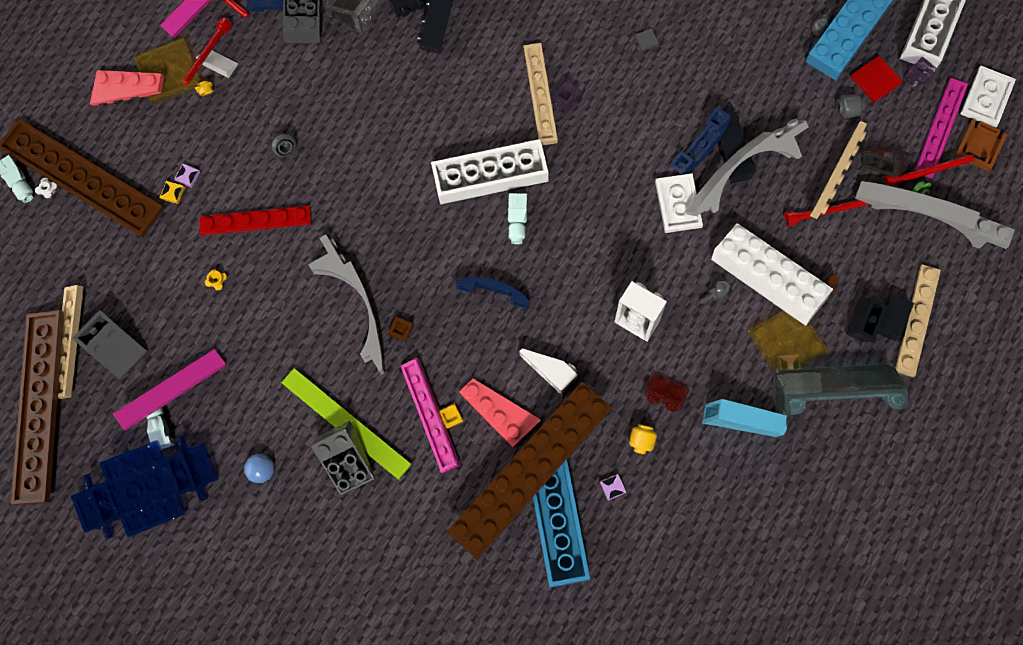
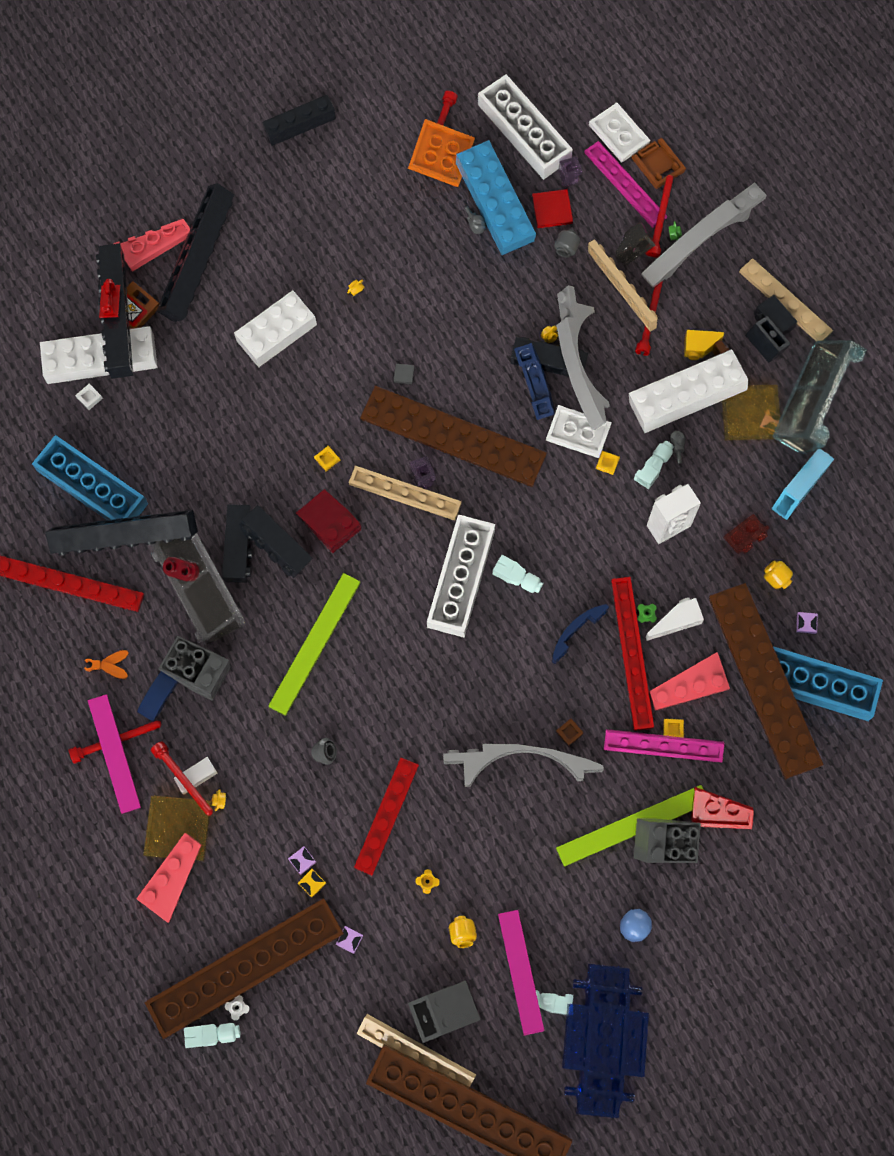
camera: 65 degrees left, 0 degrees up
(139, 244) = (349, 940): none -> lavender tile
(184, 327) = (462, 932): none -> yellow head
(372, 92) = (314, 644): none -> lime tile
(392, 490) = (719, 811): none -> wing
(481, 49) = (329, 520): none -> dark red slope
(499, 347) = (632, 654): none -> red plate
(536, 20) = (327, 458): none -> yellow tile
(544, 337) = (646, 608): none -> bright green plate
(614, 108) = (453, 436): none -> reddish brown plate
(665, 242) = (607, 462): none -> yellow tile
(684, 281) = (654, 464): none -> light aqua piece
(753, 132) = (549, 334): none -> yellow plate
(826, 263) = (700, 343): none -> yellow slope

